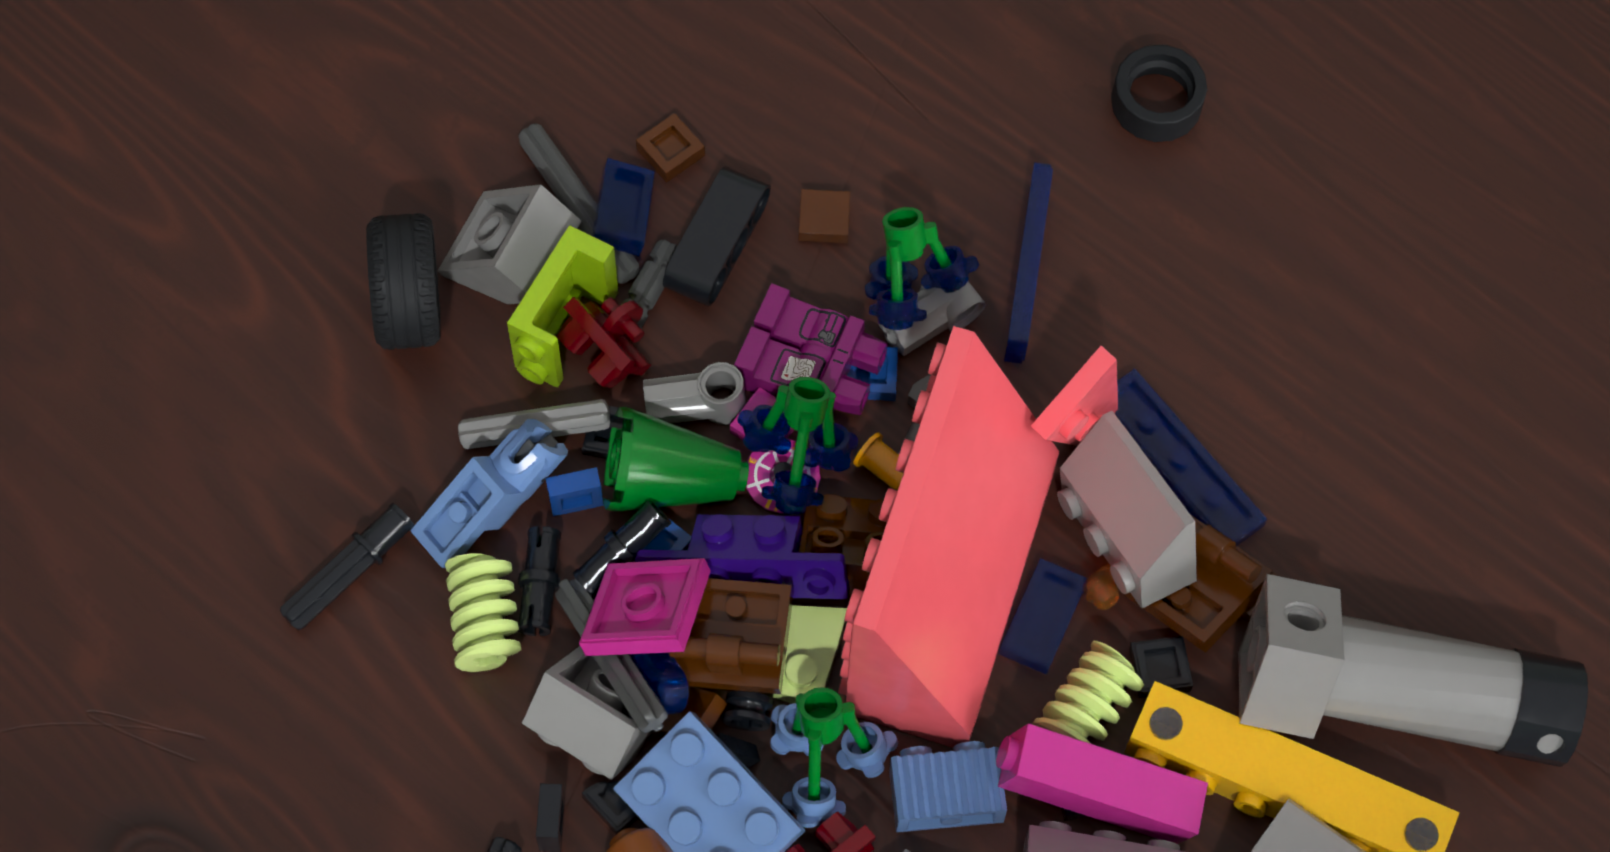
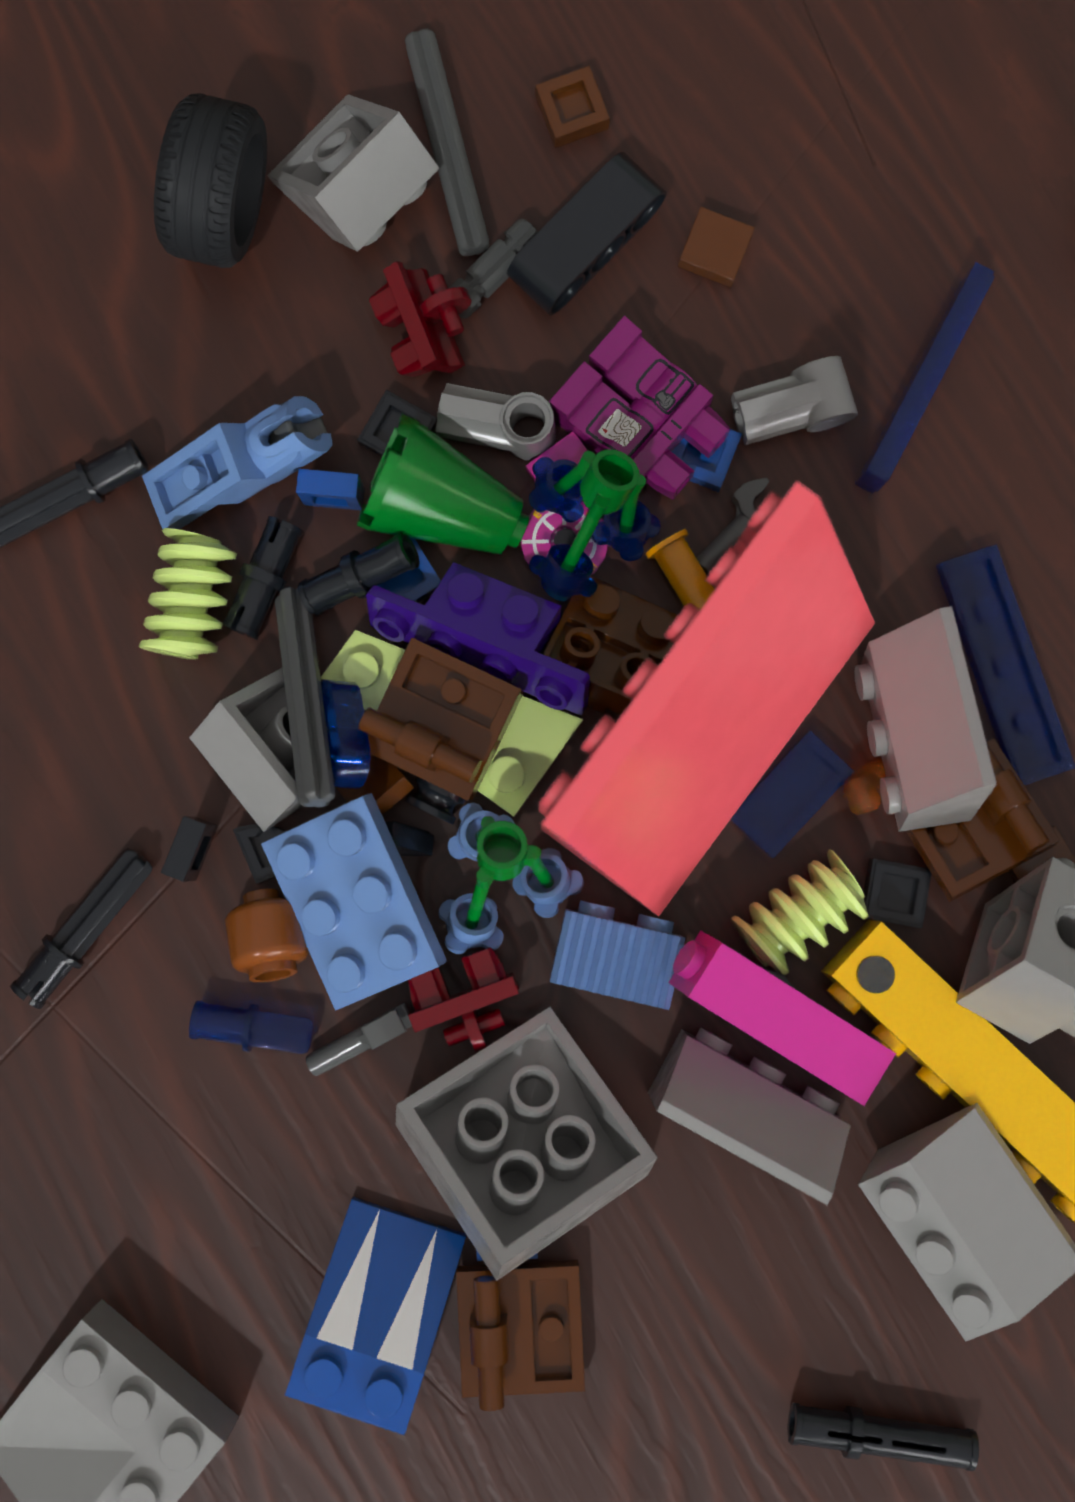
camera: 20 degrees right, 20 degrees up
(561, 419) = (332, 398): light grey axle -> none
(575, 268) = (352, 270): lime panel -> none
(623, 206) = (492, 165): clear blue tile -> none
(645, 607) = (353, 662): dark pink tile -> none
(893, 274) = (768, 343): plant -> none
(1081, 401) = (917, 592): coral wing -> none

